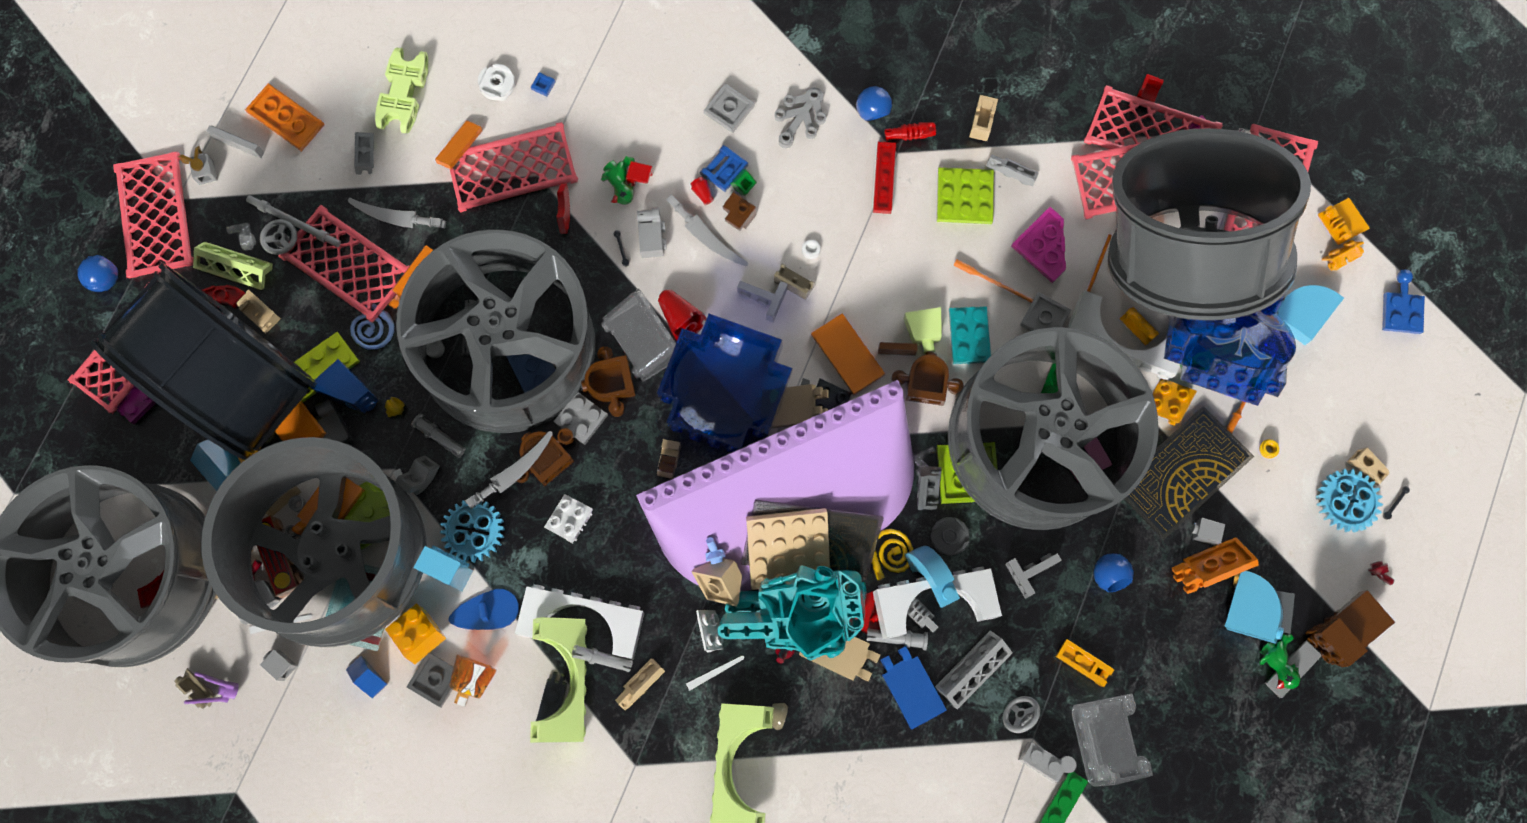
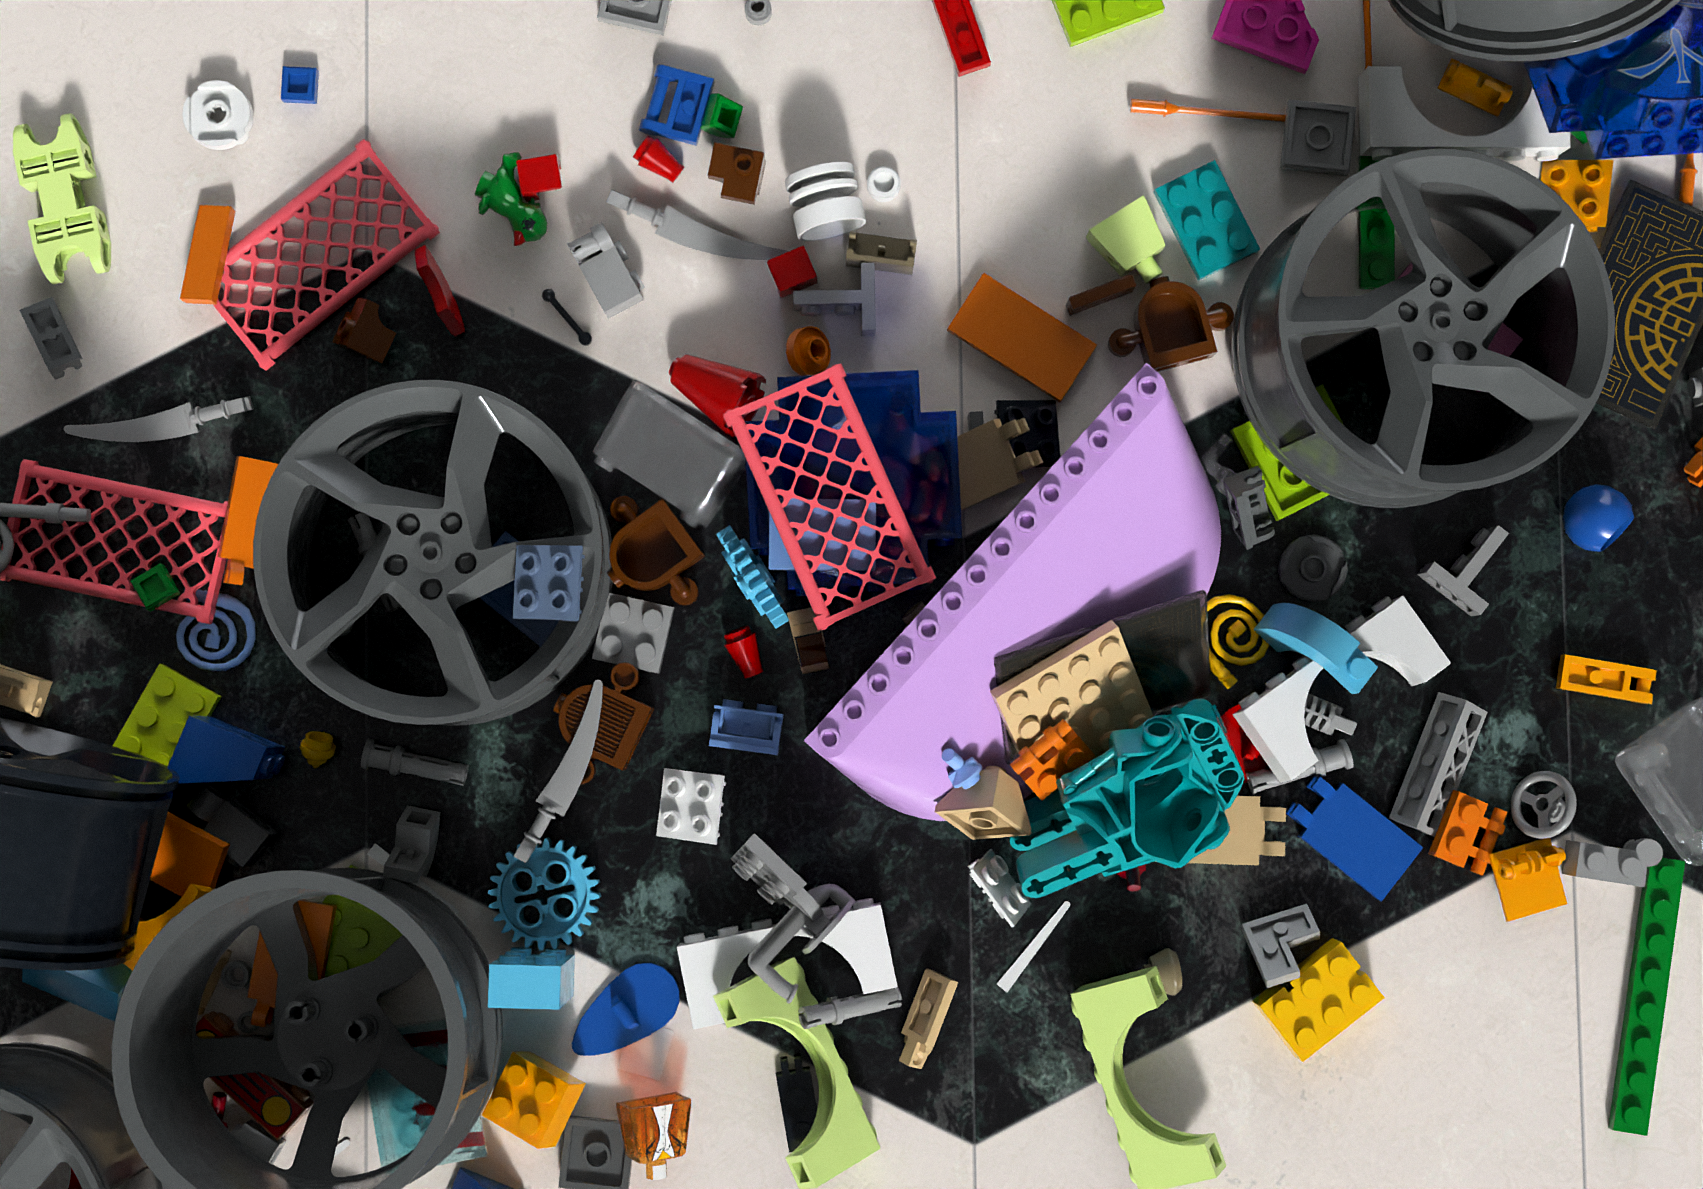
camera: 25 degrees left, 10 degrees up
(353, 292) = (155, 587): none -> green tile
(516, 212) = (363, 332): none -> reddish brown brick
(544, 358) = (548, 582): none -> sand blue hinge
(599, 591) = (783, 885): none -> light grey plate
(615, 490) = (745, 728): none -> medium blue hinge
(633, 450) = (744, 650): none -> red cone
(652, 412) = (752, 577): none -> medium azure gear
(696, 401) = (821, 520): none -> medium blue tile
(735, 312) = (808, 351): none -> orange plate
(737, 396) = (776, 508): none -> coral door
(744, 271) = (792, 271): none -> red panel
(769, 570) = (1051, 757): none -> orange plate
(776, 243) = (825, 200): none -> white wheel
(844, 722) = (1272, 939): none -> light grey plate
(854, 767) = (1322, 1001): none -> yellow piece
(970, 708) = (1459, 829): none -> orange plate
(997, 752) = (1529, 878): none -> light orange hinge

